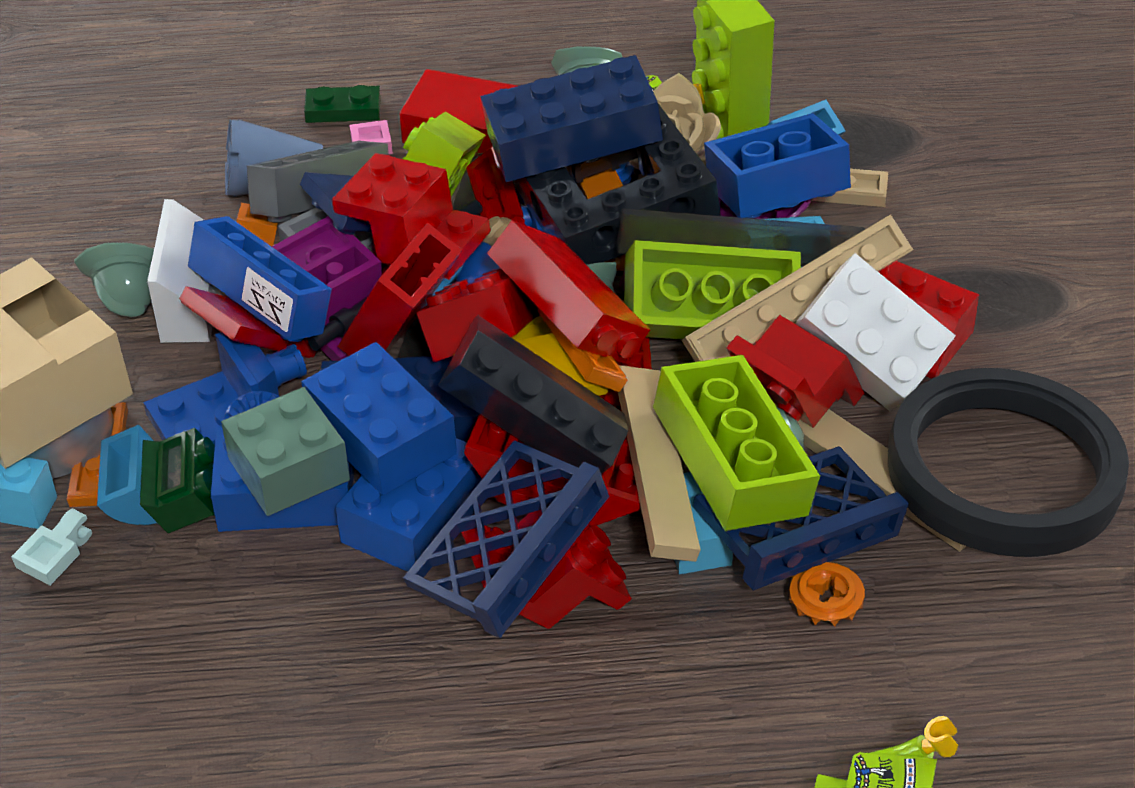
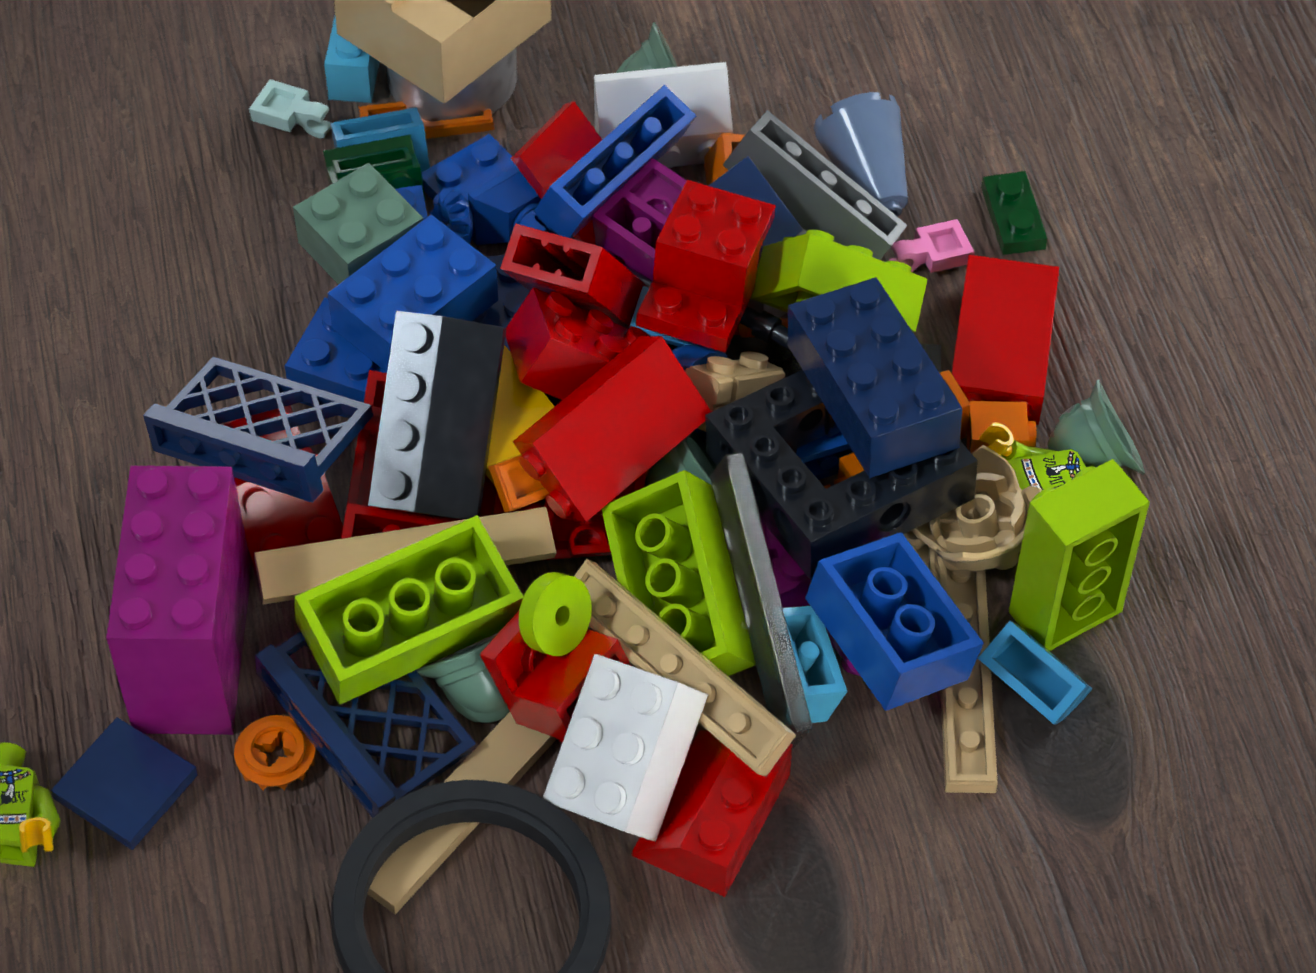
camera: 80 degrees right, 10 degrees up
(697, 602) = (180, 600): none -> magenta brick
(759, 336) = (555, 613): none -> lime piece
(856, 701) = (124, 783): none -> dark blue tile

